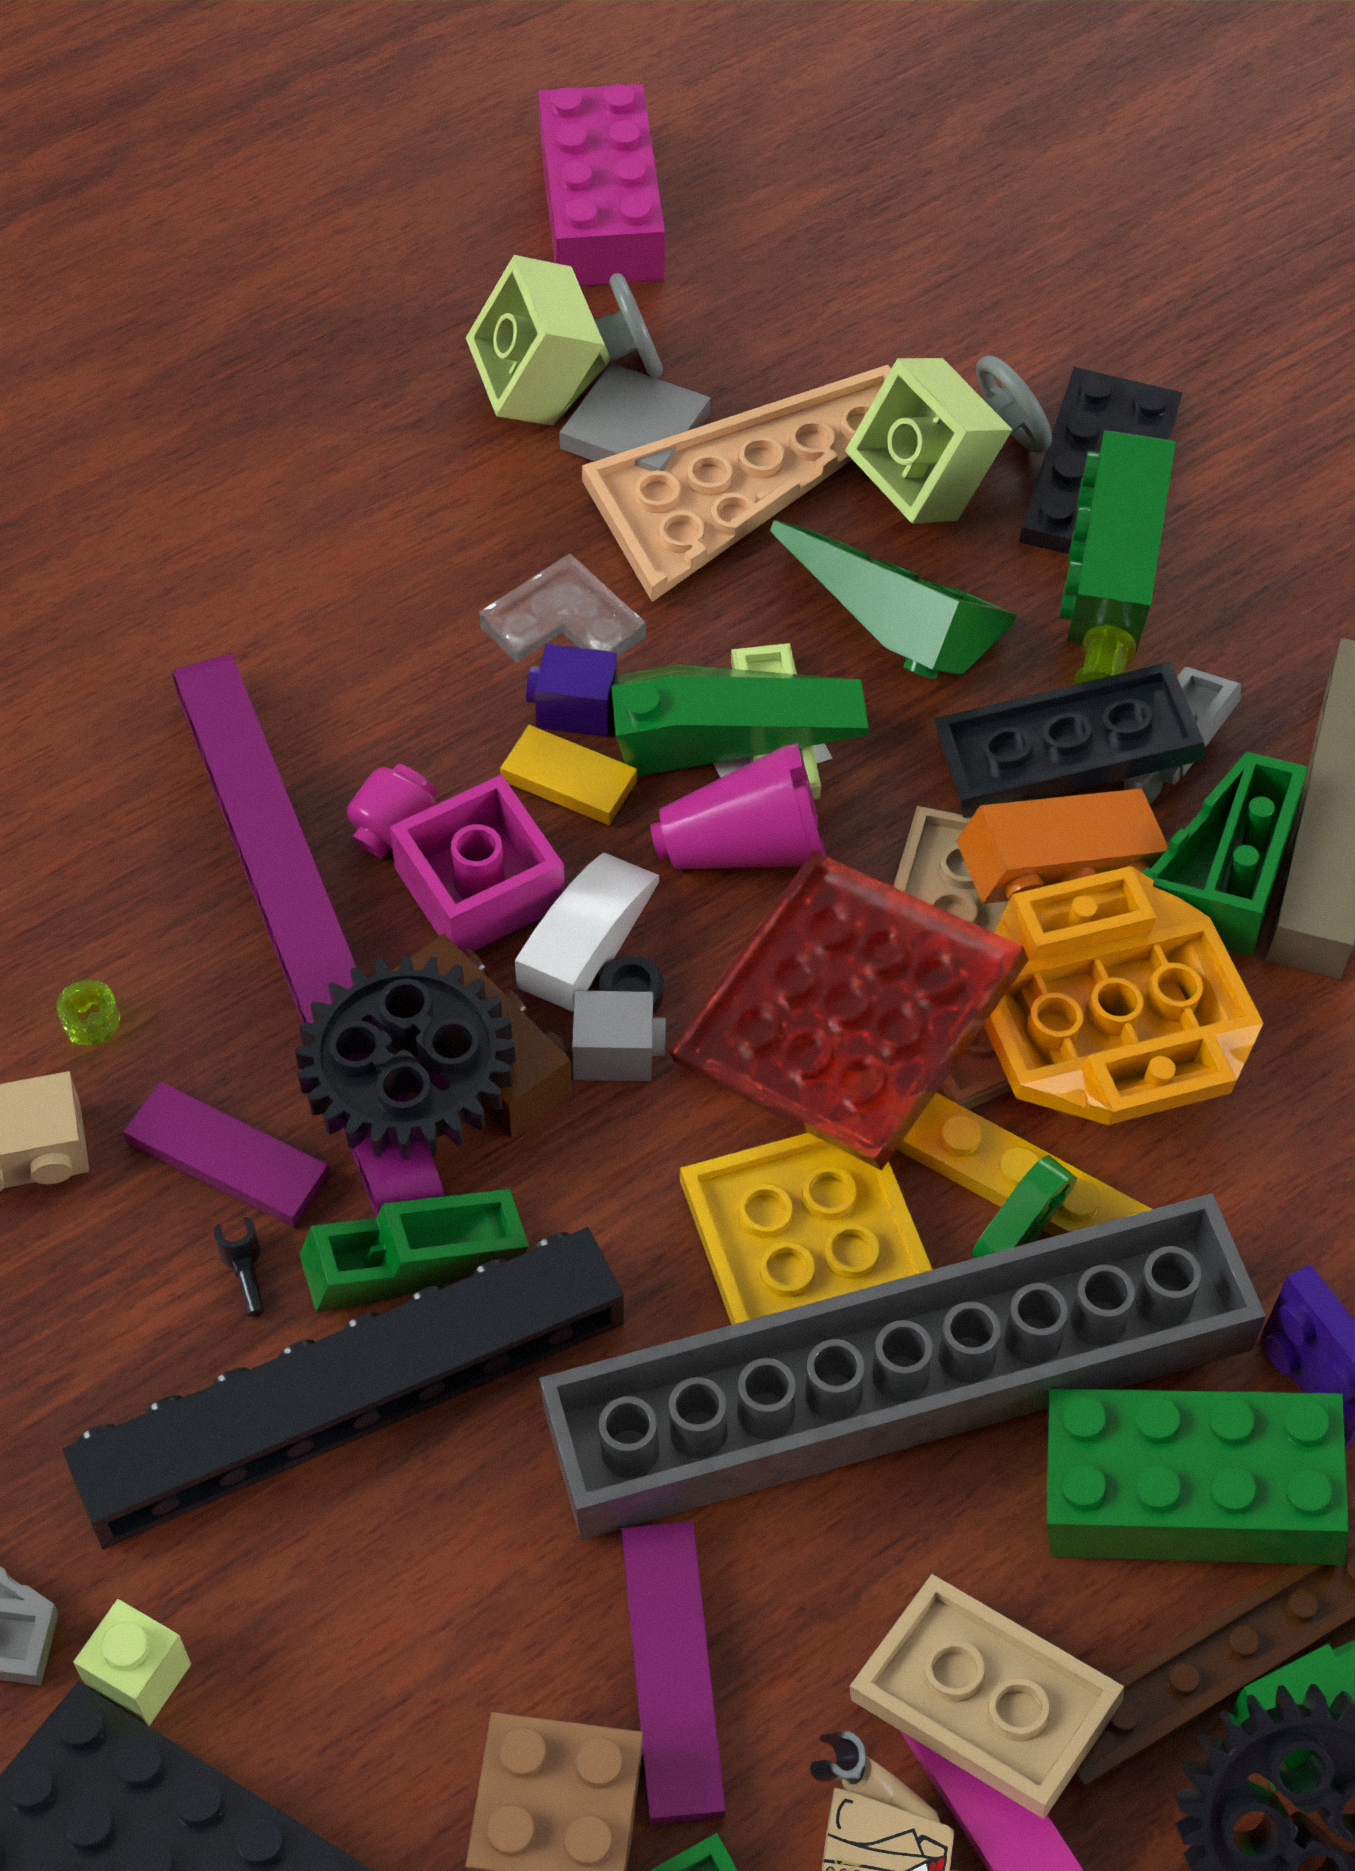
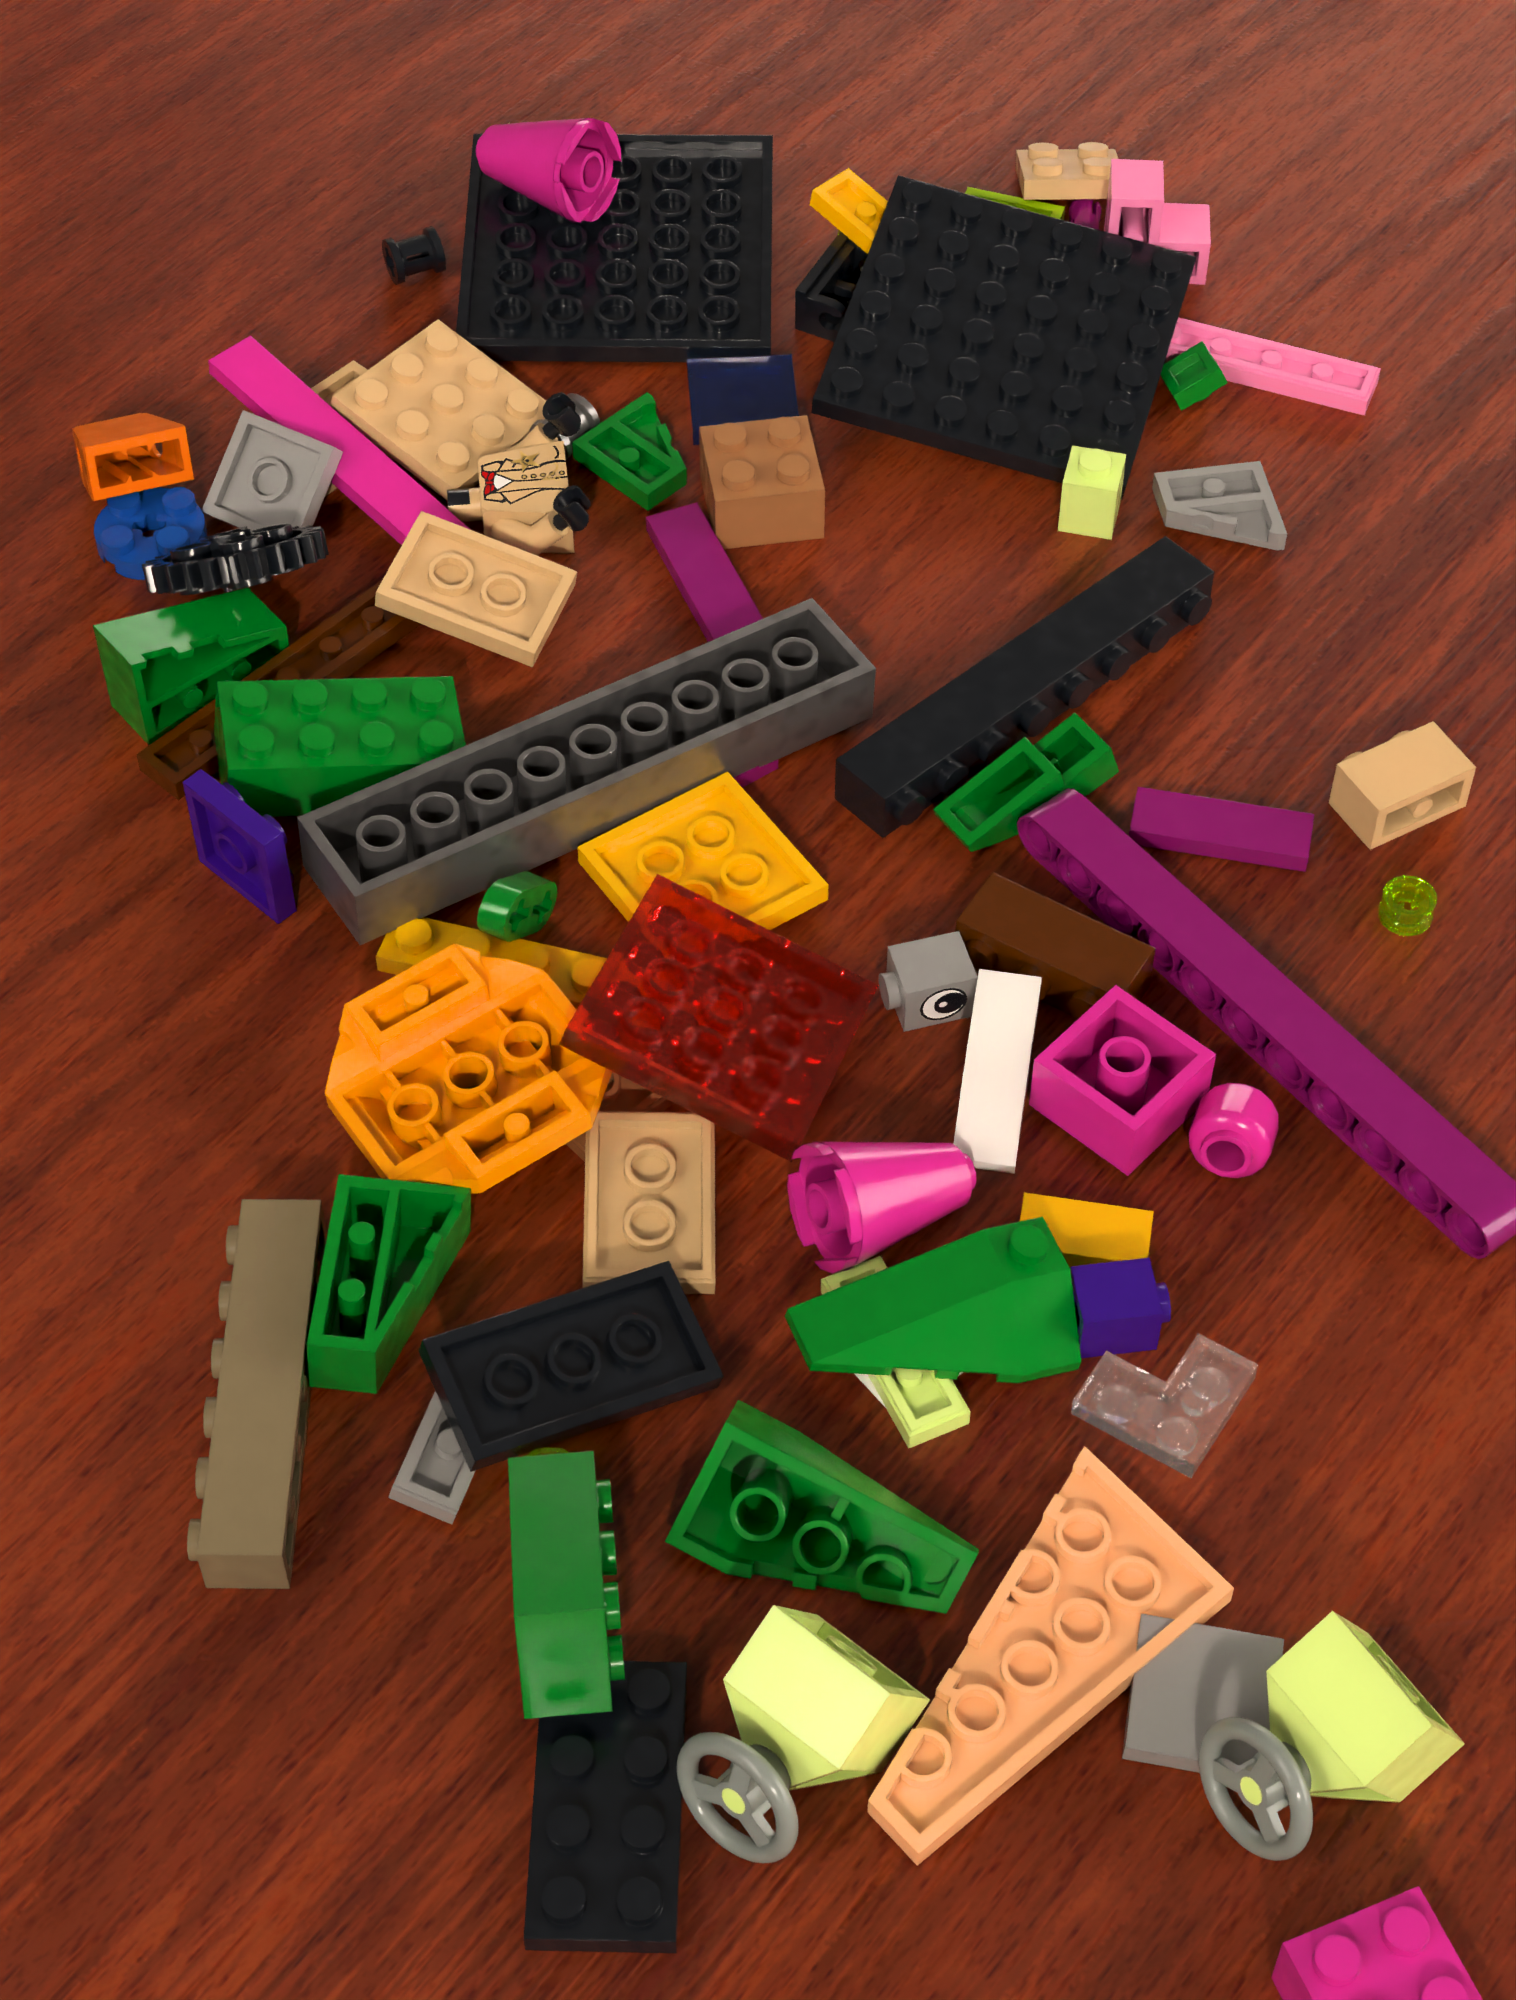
camera: 165 degrees right, 5 degrees down
(241, 1257) = (1165, 759): black hand -> none
(363, 1091) = (1096, 865): black gear -> none
(634, 975) = (935, 1048): black tile -> none
(1058, 840) = (553, 1230): orange brick -> none

